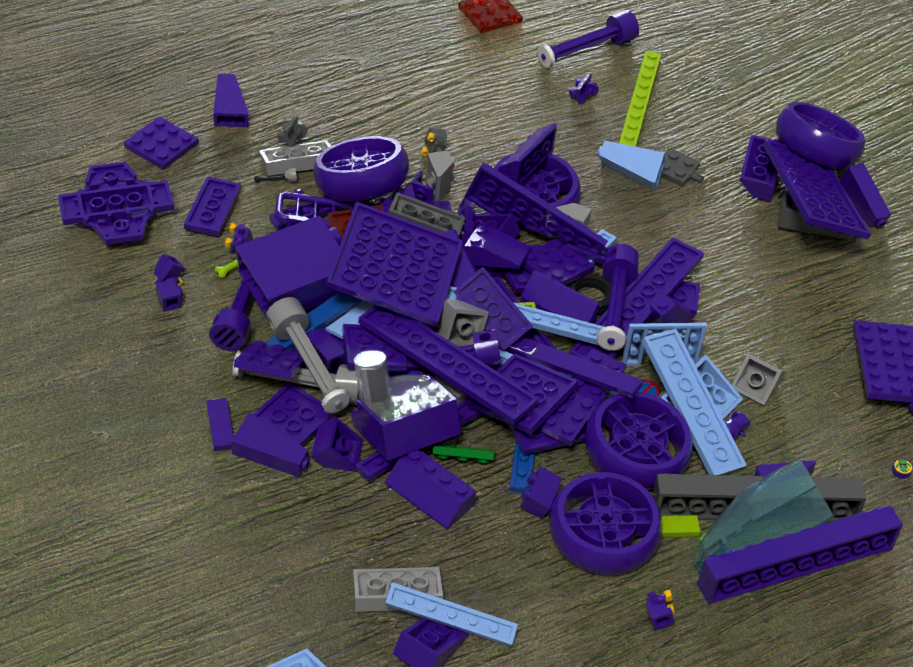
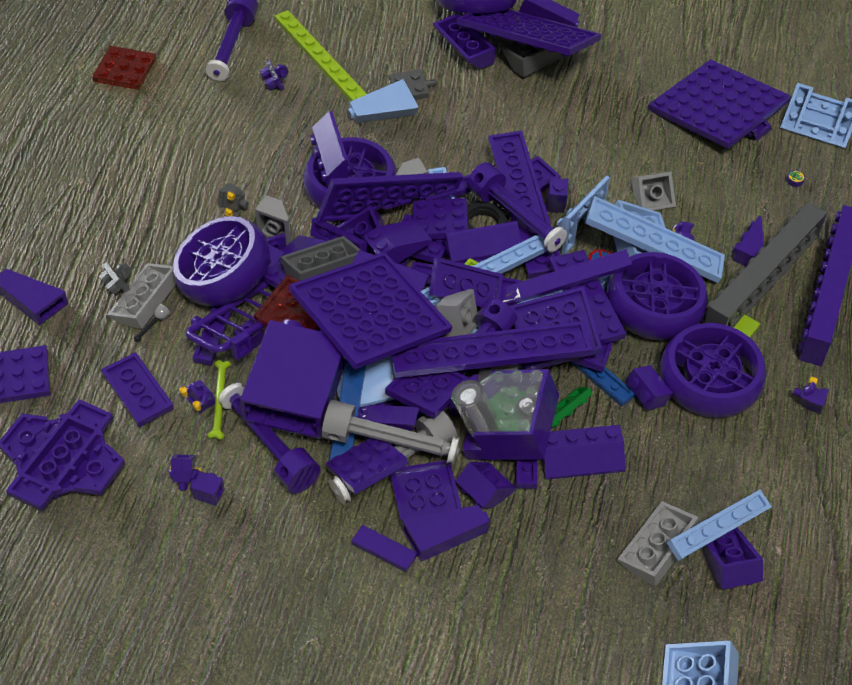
camera: 45 degrees left, 5 degrees up
(765, 510) = (798, 271): clear light blue windscreen -> none

